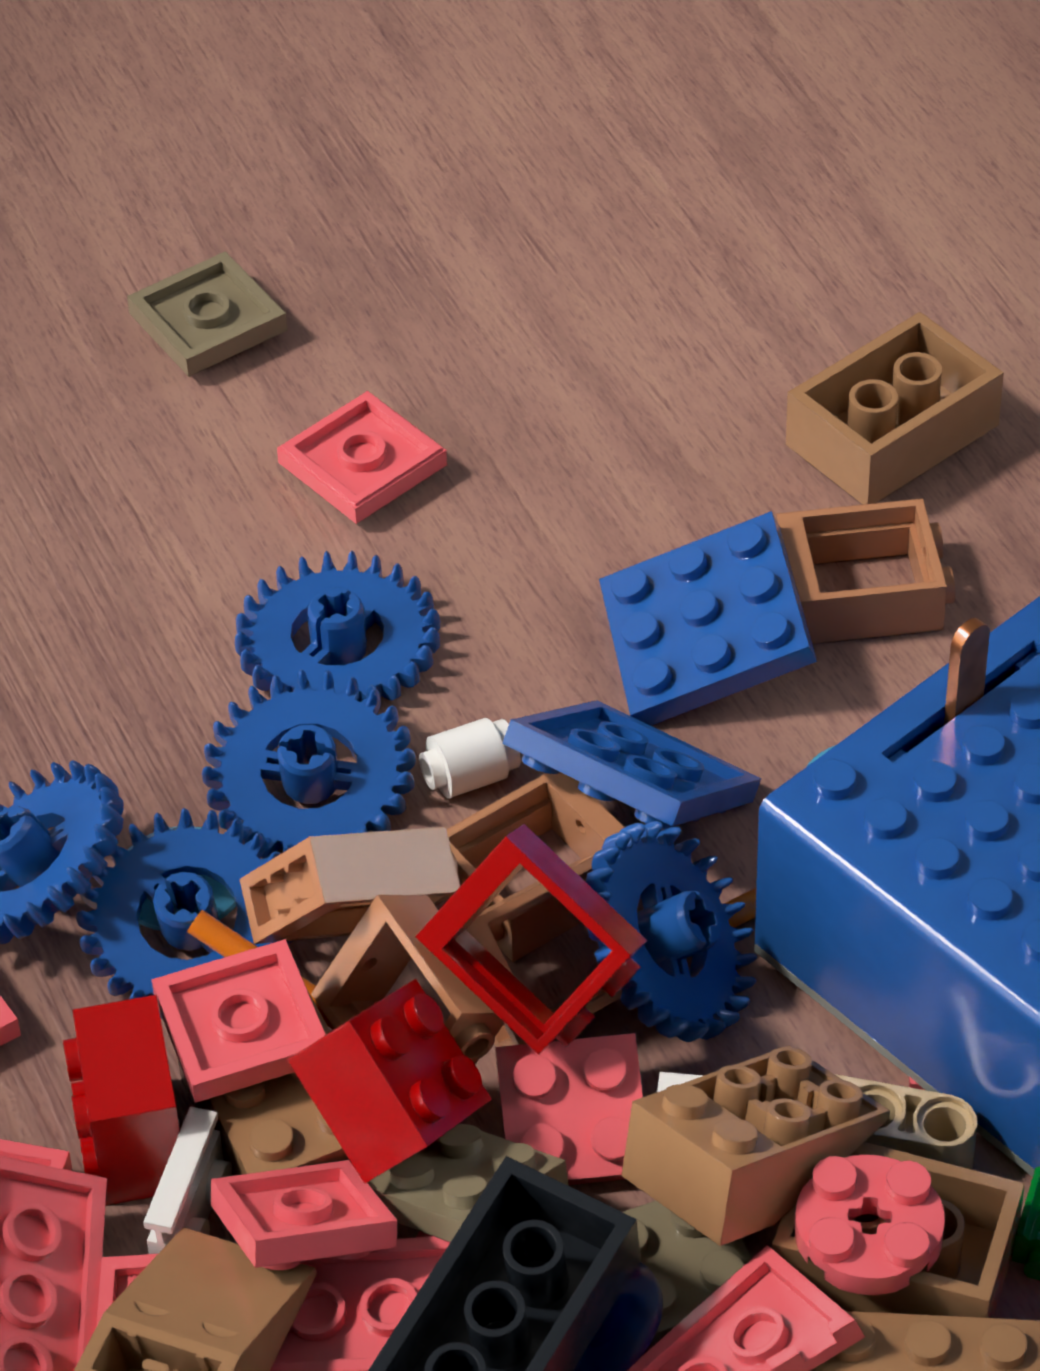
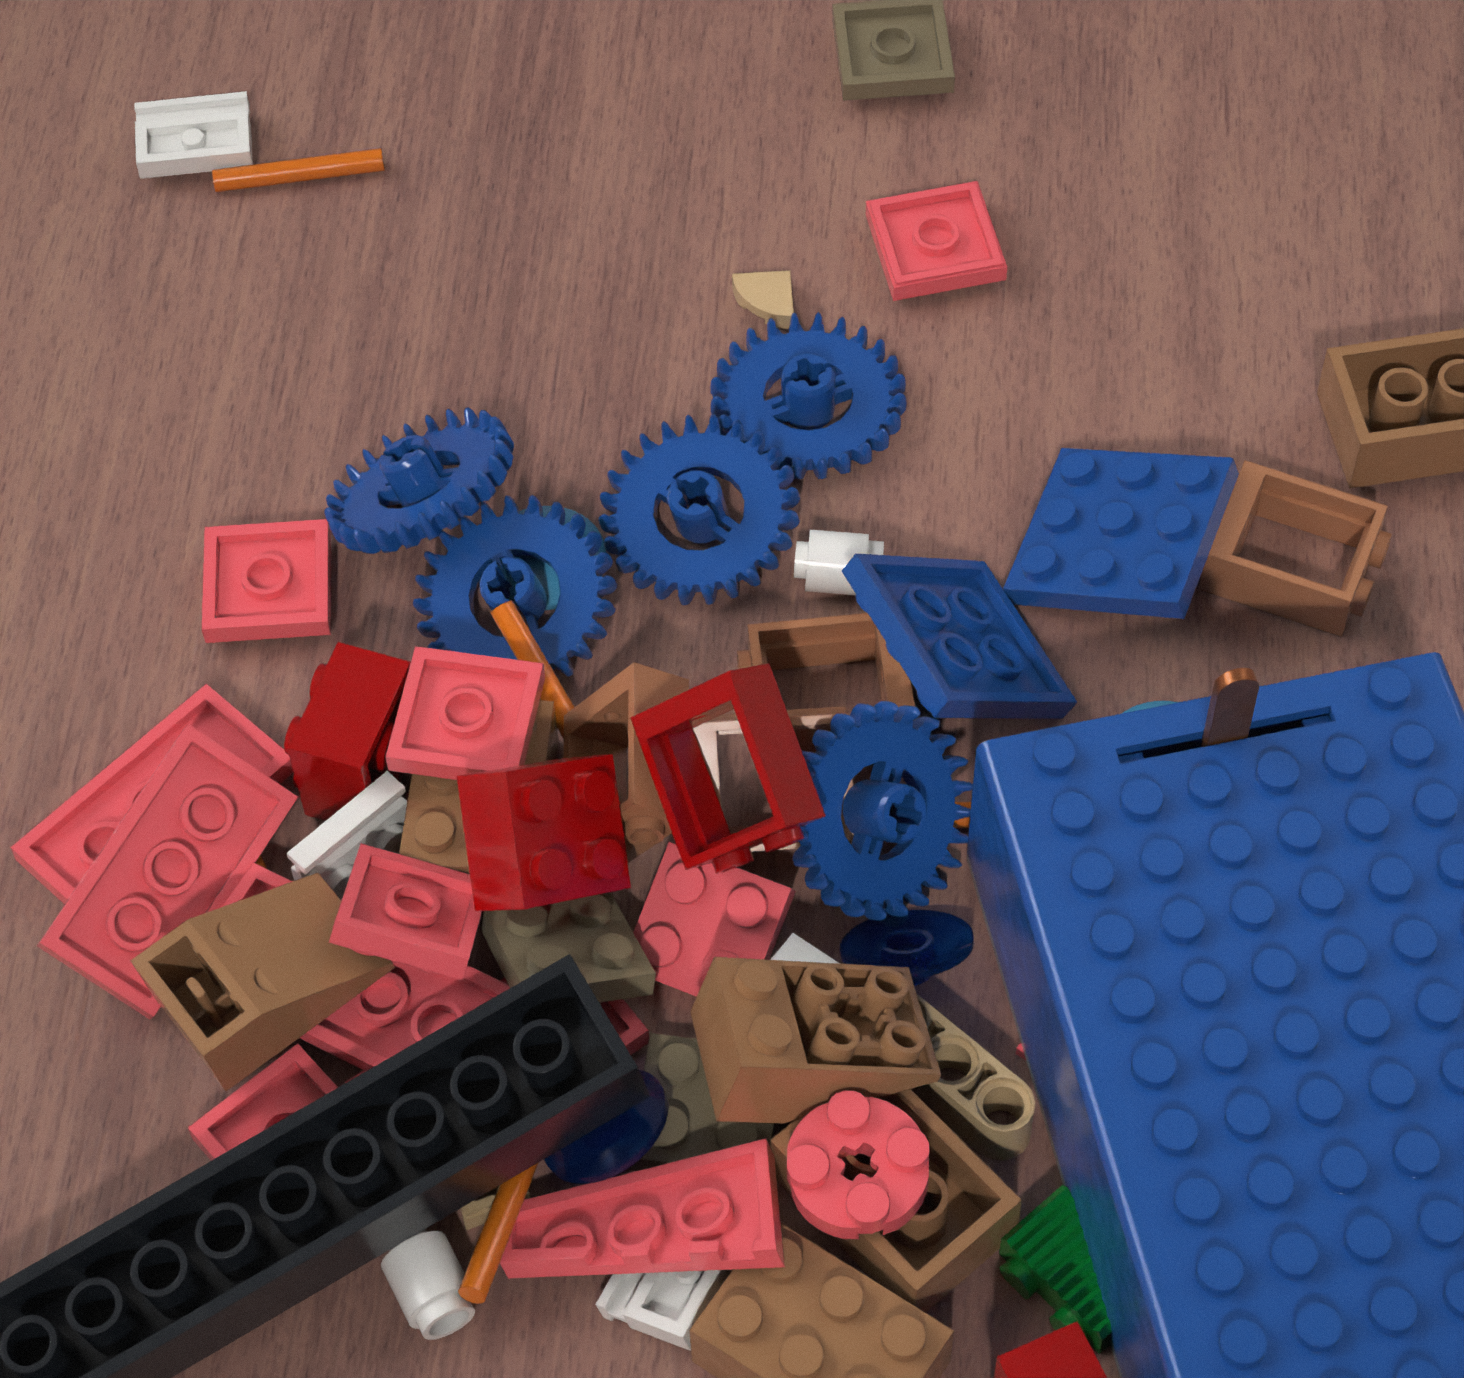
camera: 30 degrees right, 10 degrees up
(236, 566) = (765, 295): none -> tan tile
(332, 880) = (625, 629): nougat window -> none
(760, 1031) = (922, 941): none -> clear blue dish

